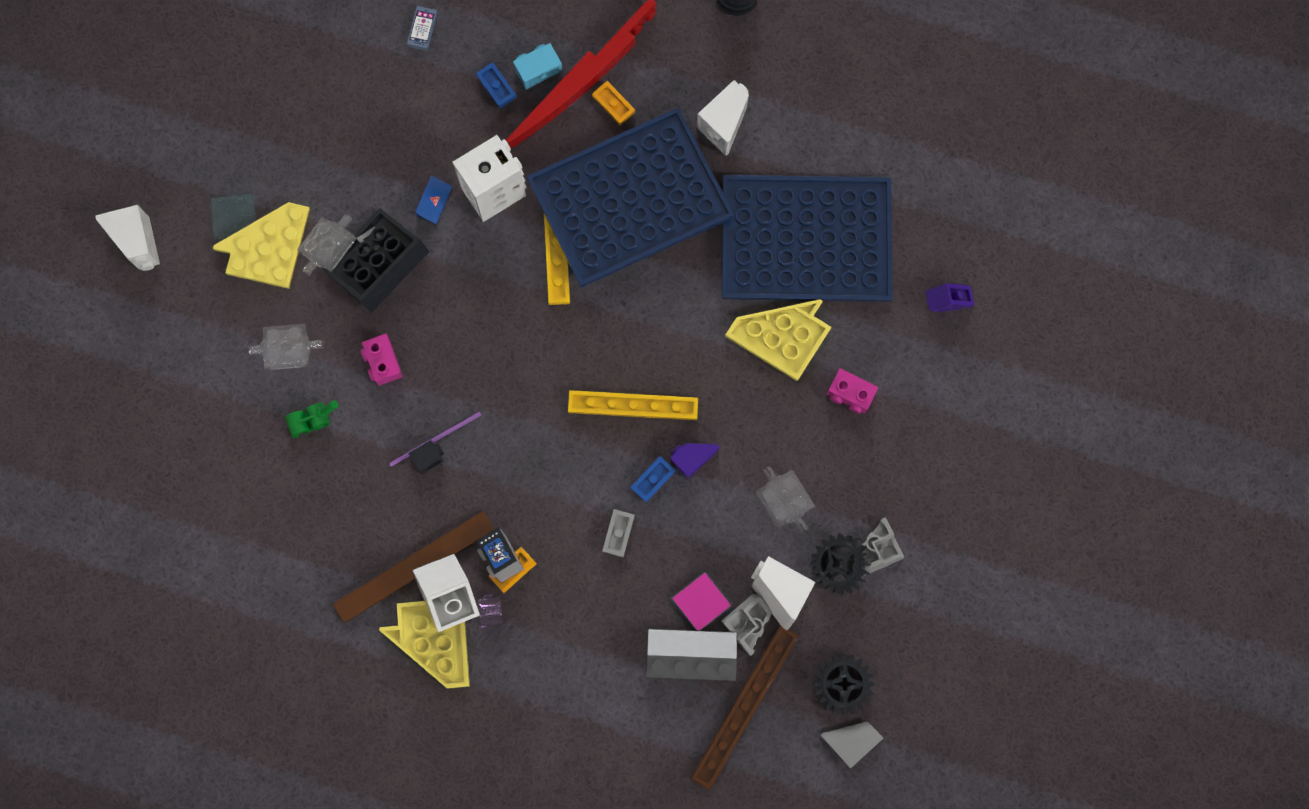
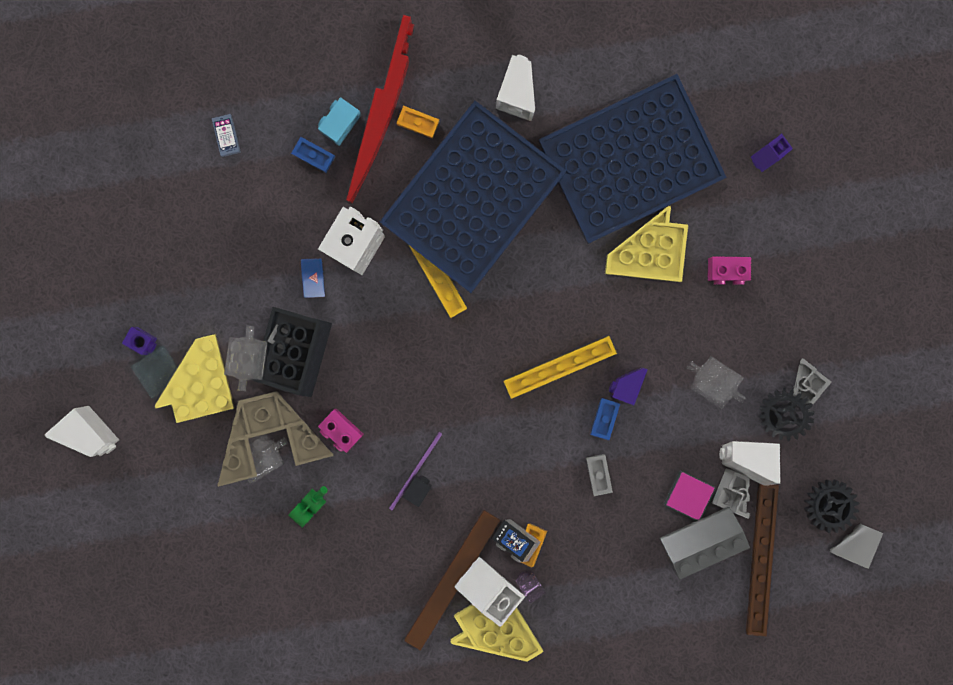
camera: 20 degrees left, 10 degrees up
(229, 171) = (132, 338): none -> dark purple brick
(313, 308) = (260, 417): none -> dark tan wing

